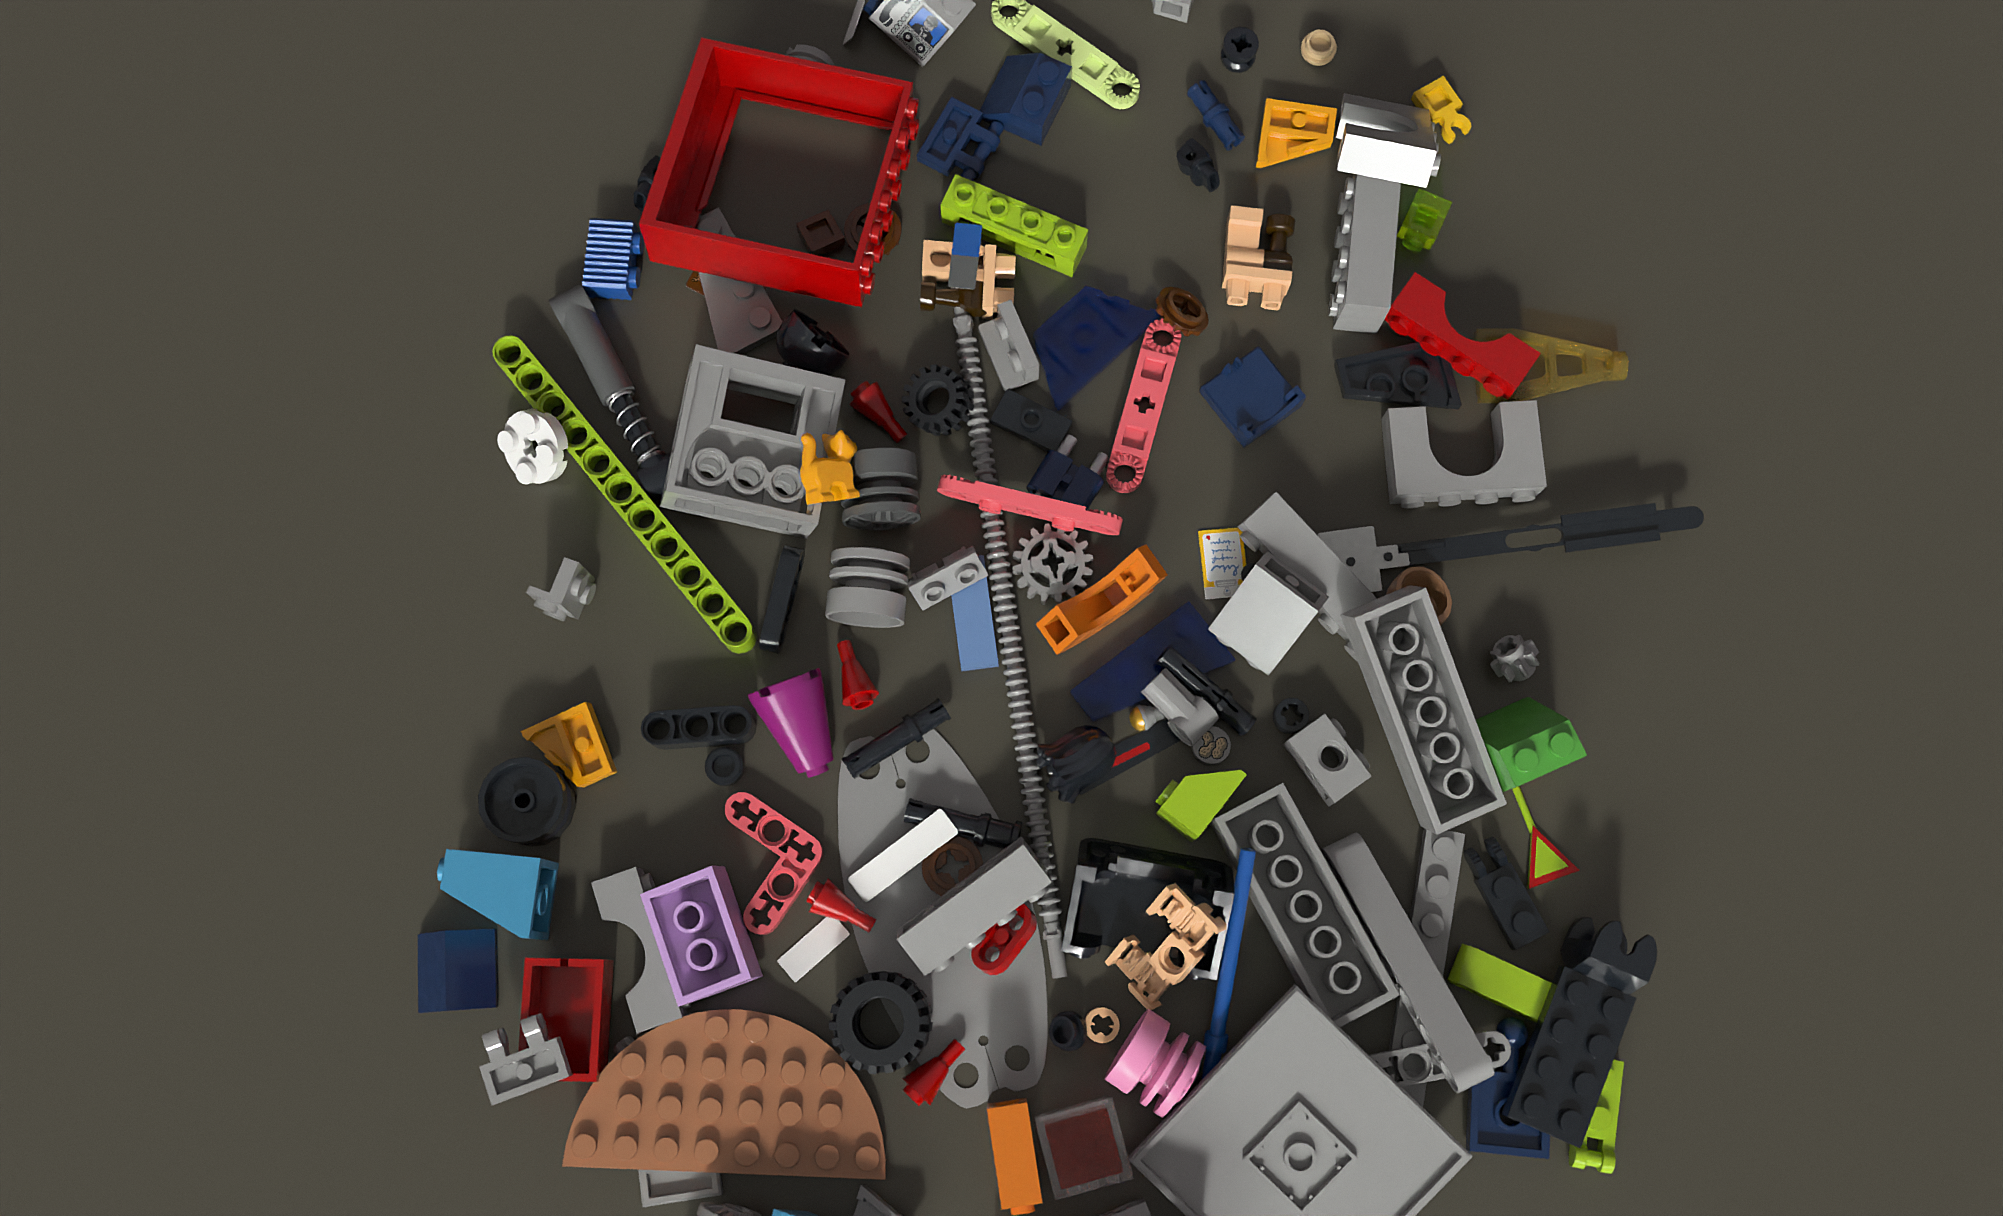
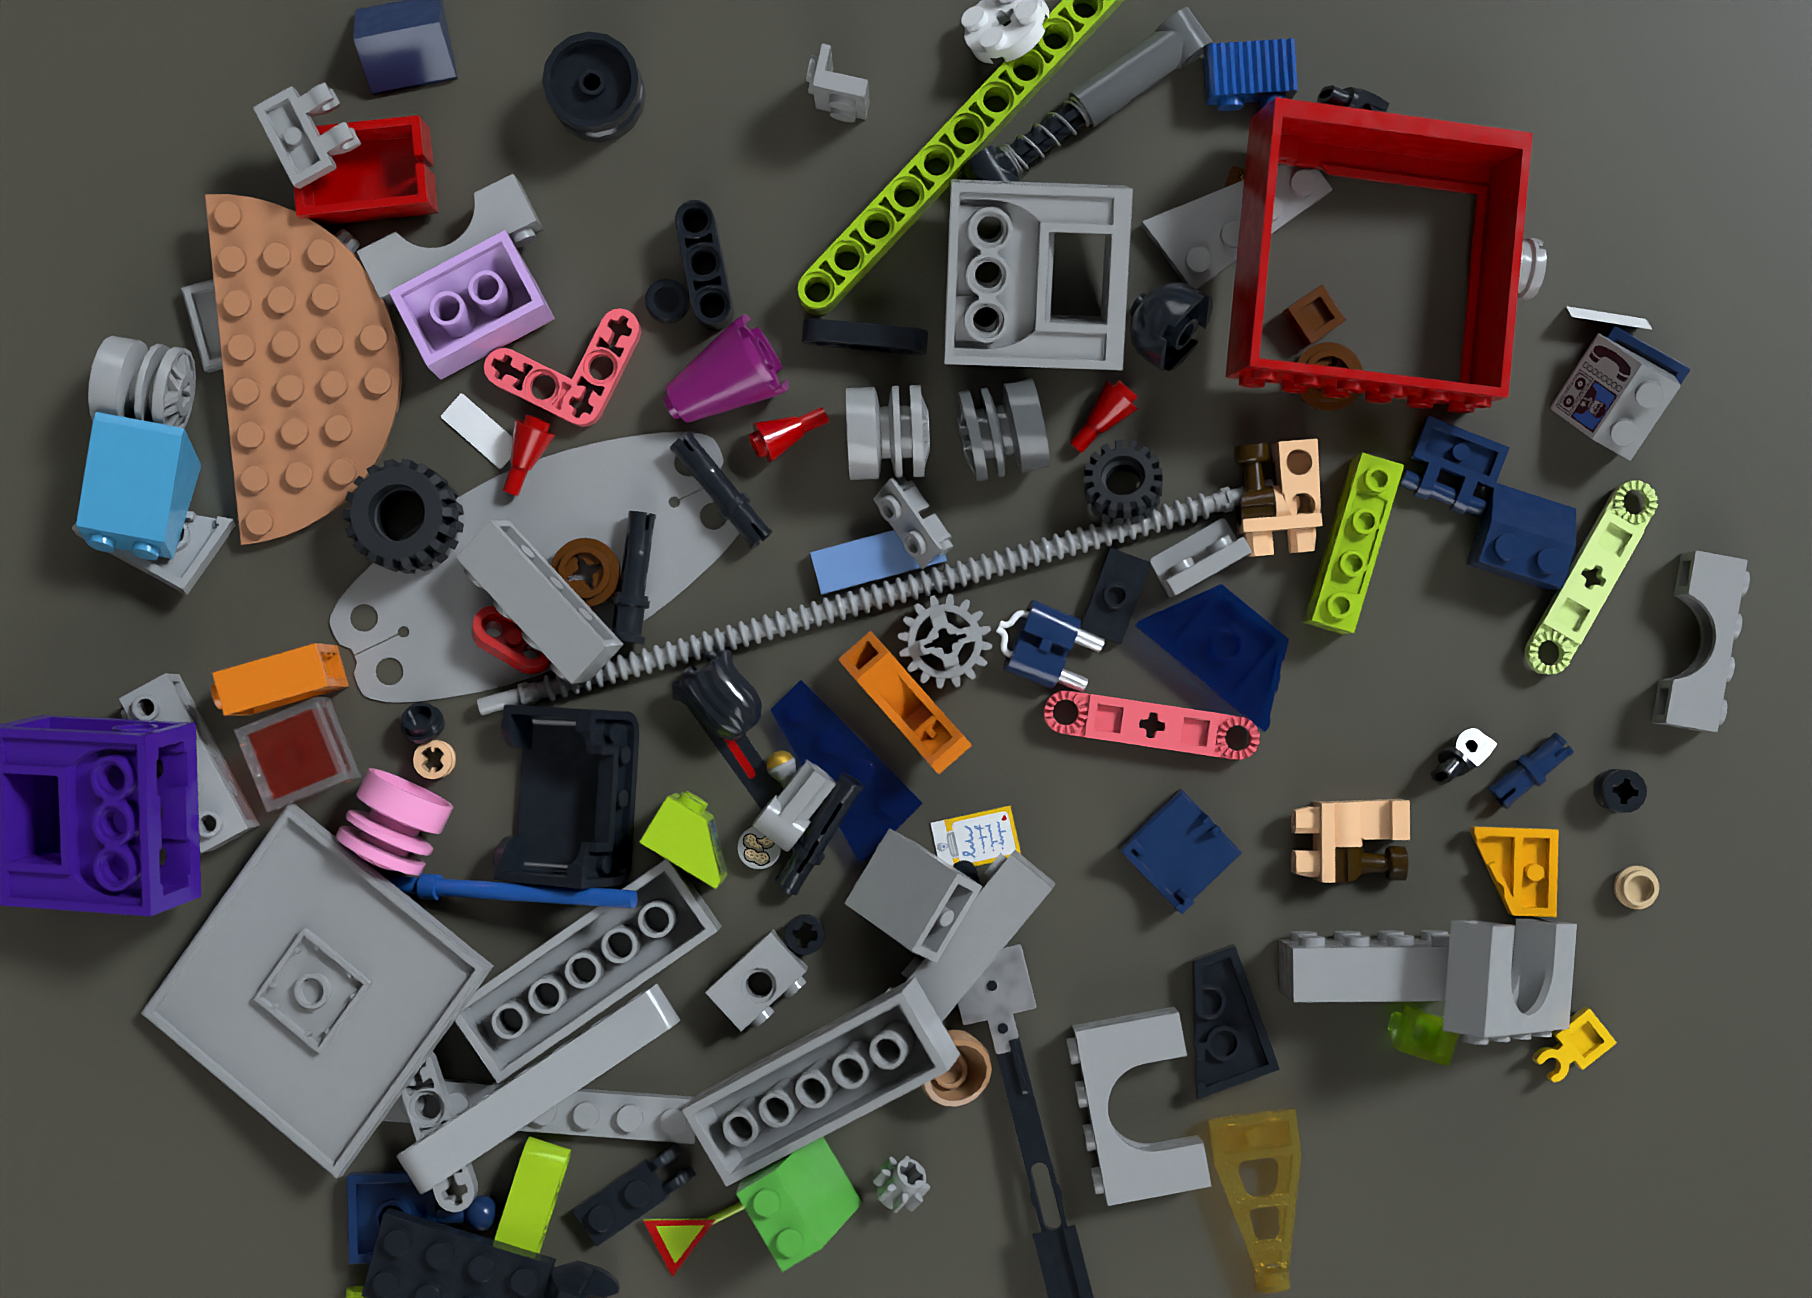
camera: 80 degrees right, 10 degrees up
(504, 888) = (493, 77): dark azure slope -> none
(574, 744) = (669, 129): light orange wing -> none
(828, 477) = (998, 370): light orange animal -> none
(903, 855) = (590, 515): white sticker -> none
(927, 1079) = (350, 574): red cone -> none
(965, 256) = (1303, 490): sticker -> none
(1061, 514) = (997, 646): coral piece -> none
(1156, 971) = (496, 816): light nougat piece -> none
(1193, 316) = (1275, 769): reddish brown gear -> none
(1495, 363) = (1300, 1041): red arch -> none

